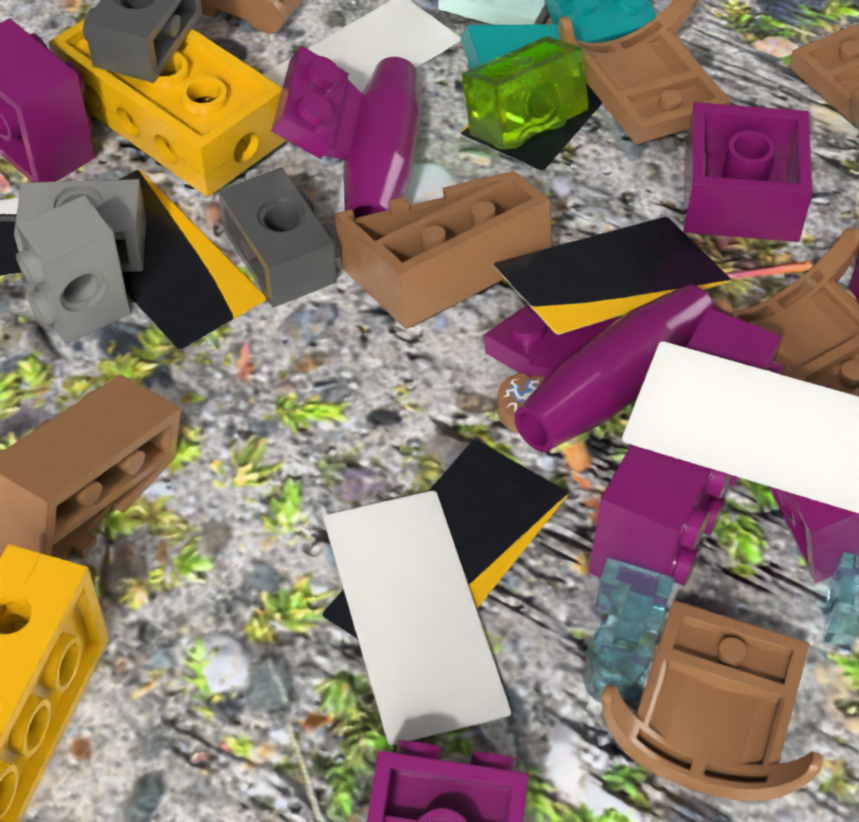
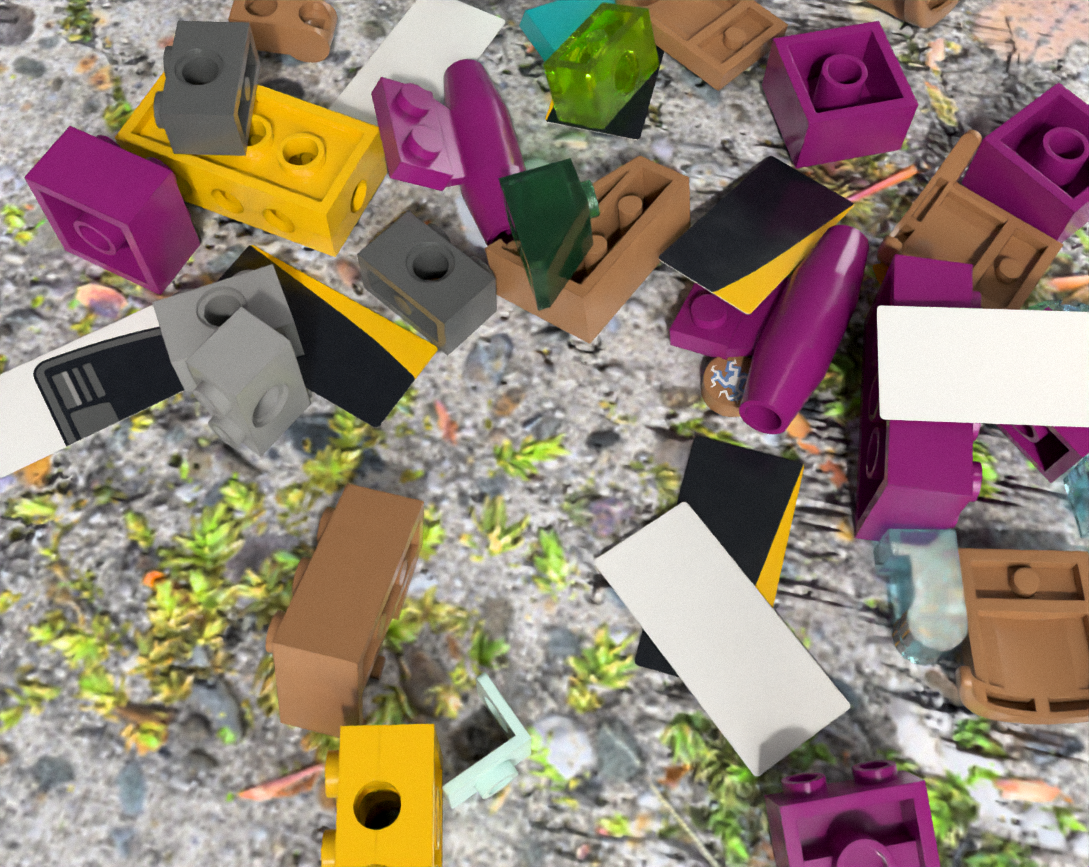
camera: 20 degrees left, 10 degrees up
(144, 649) = (496, 768): none -> light aqua bracket
(391, 203) = (549, 224): none -> clear green slope

